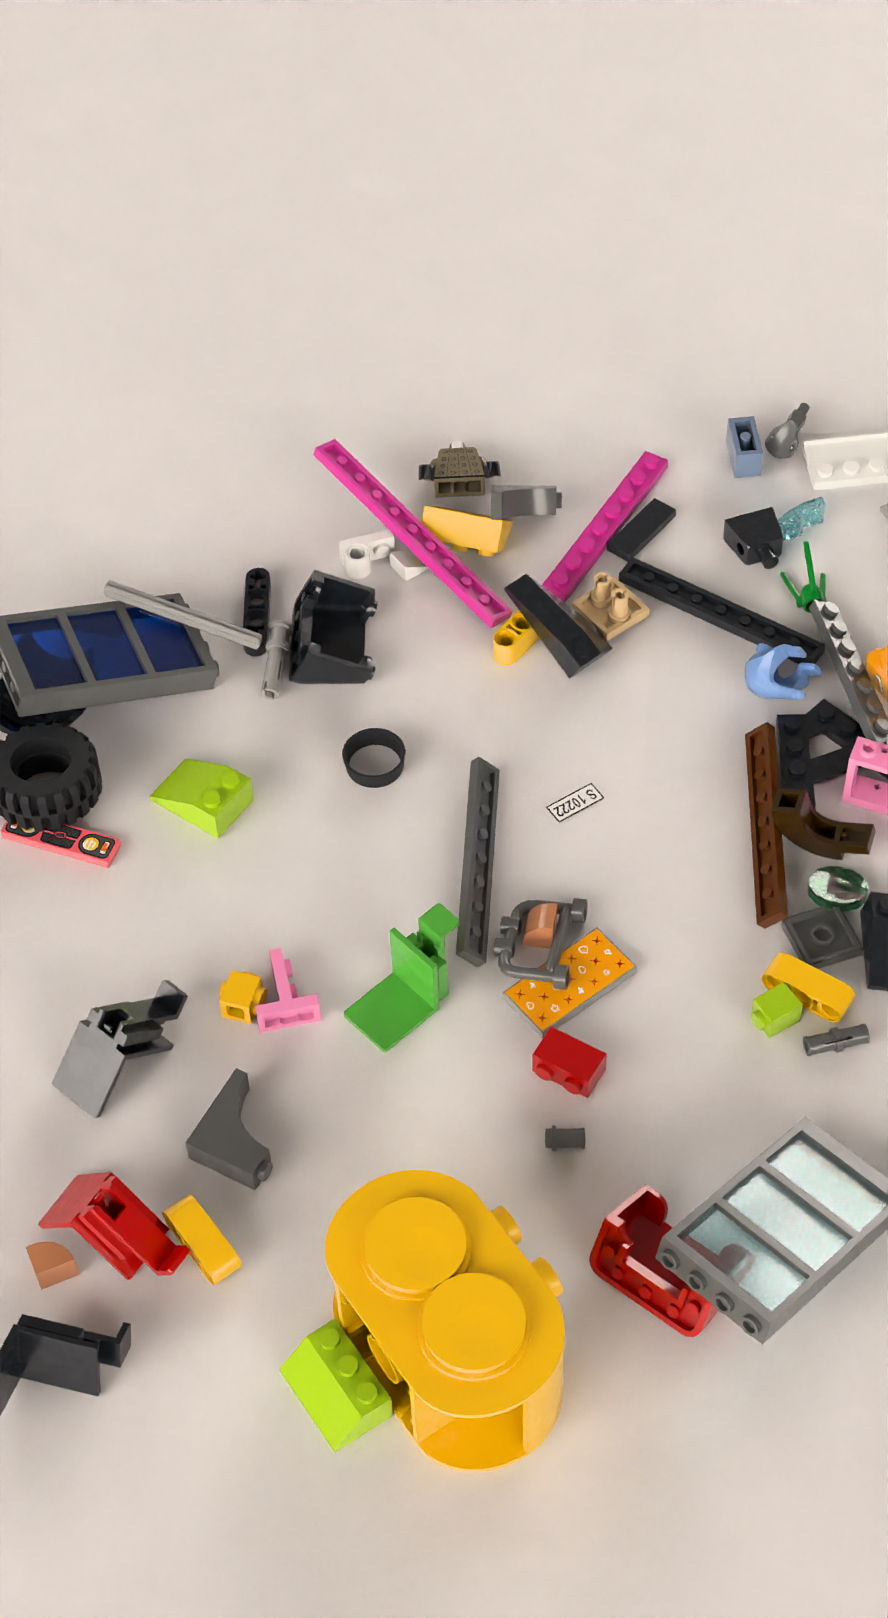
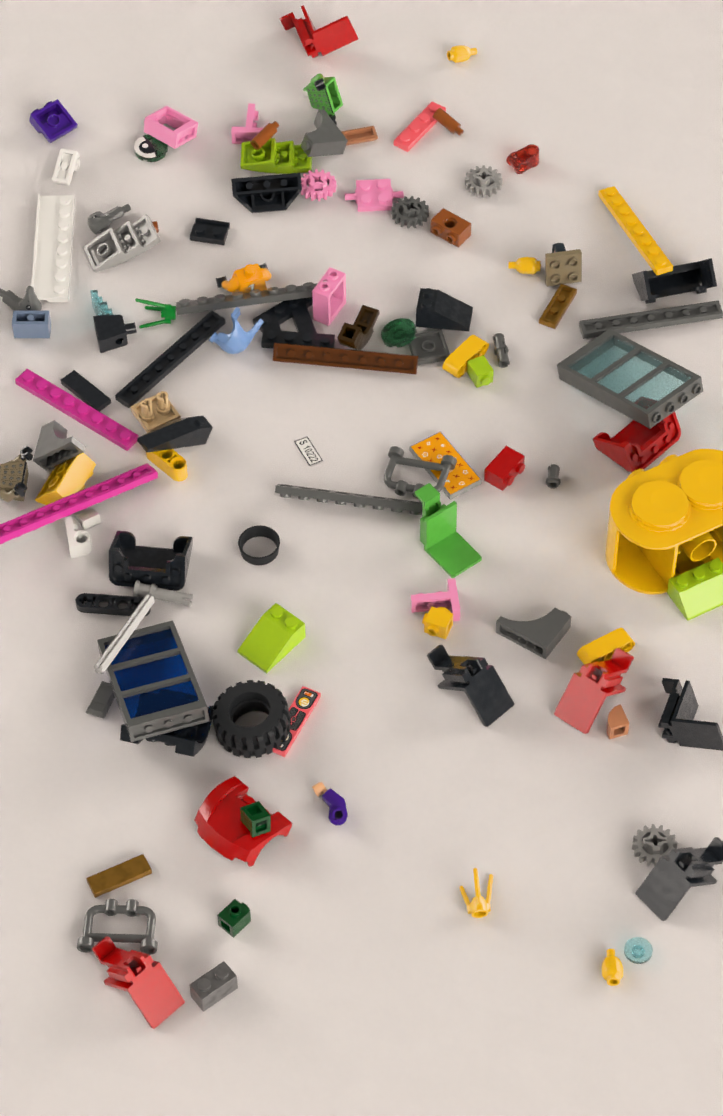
camera: 85 degrees left, 0 degrees up
(540, 926) = (406, 469): nougat brick -> none

